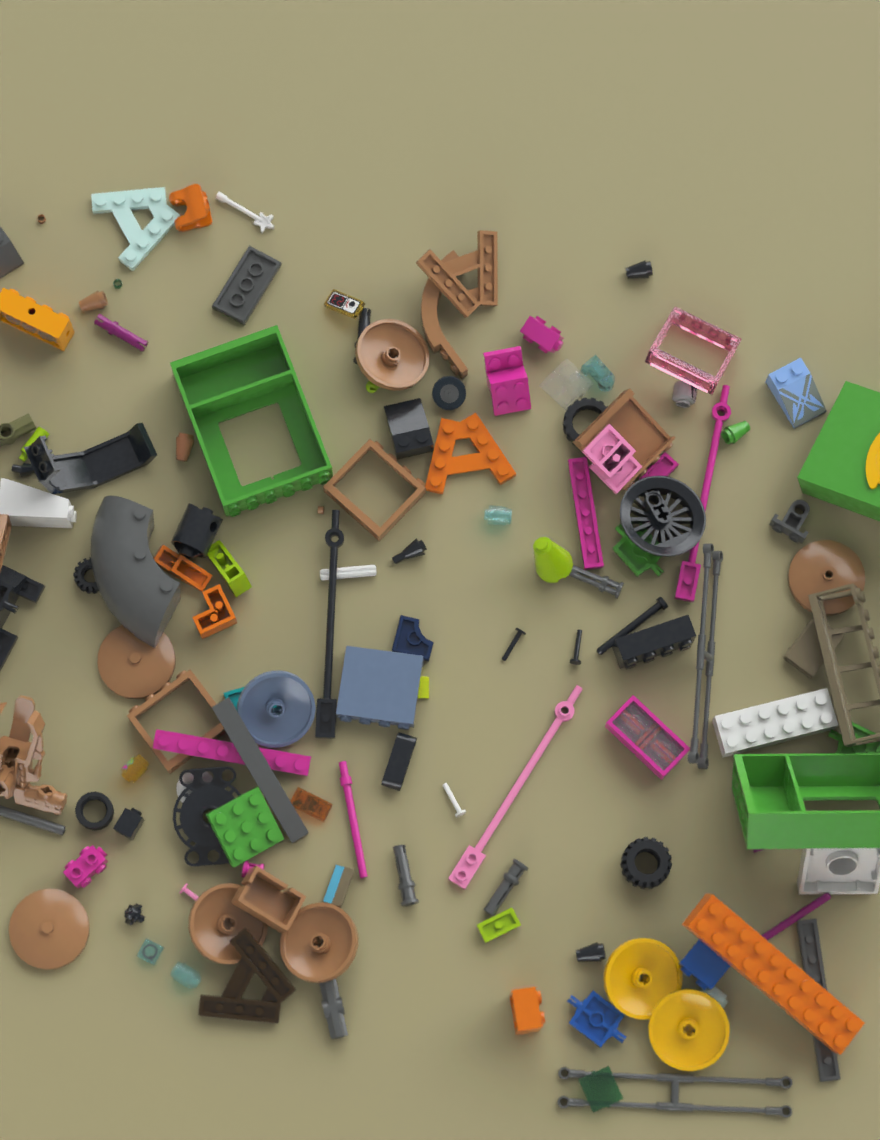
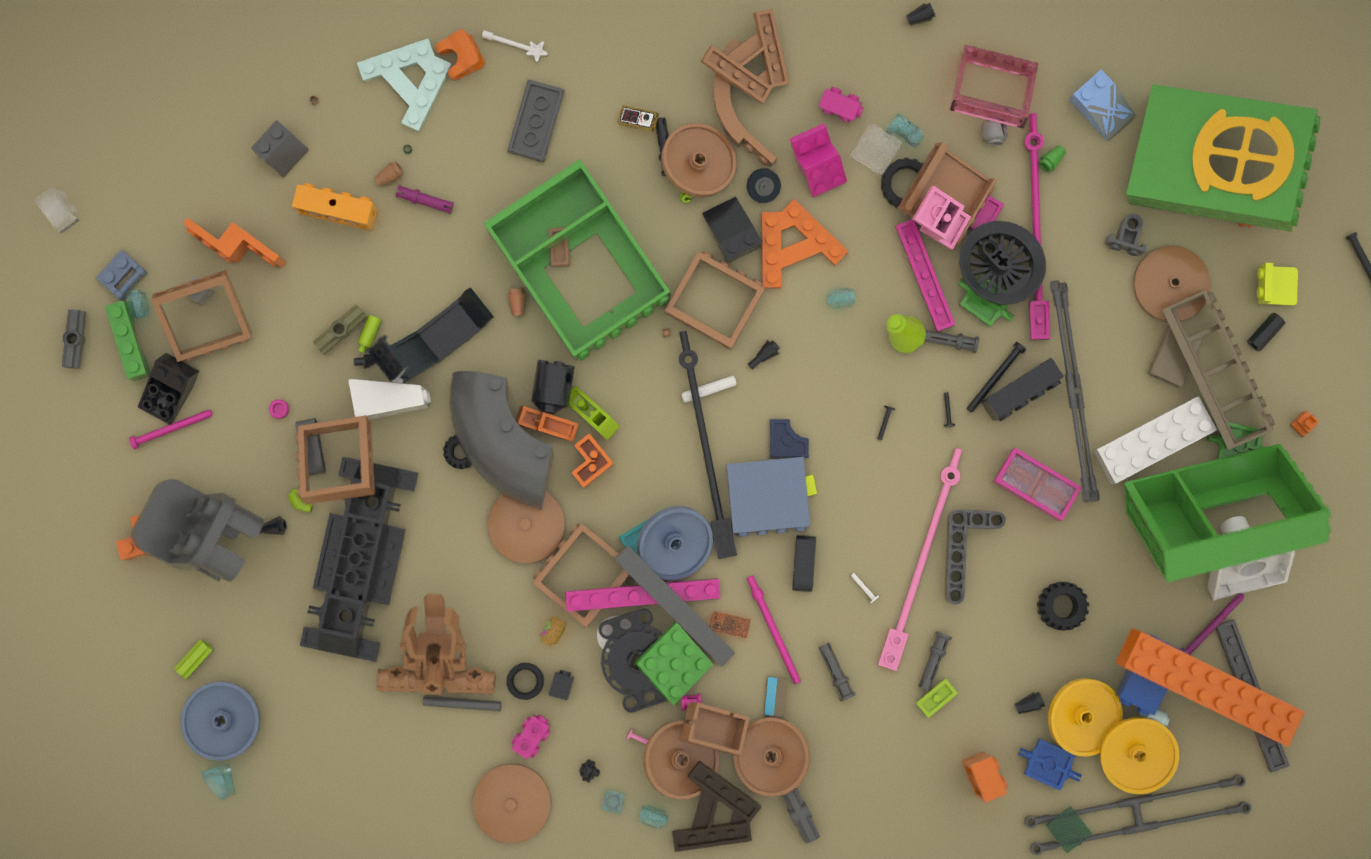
camera: 15 degrees left, 10 degrees up
(237, 413) = (559, 254): none -> medium nougat tile
(556, 781) = (960, 547): none -> dark grey beam

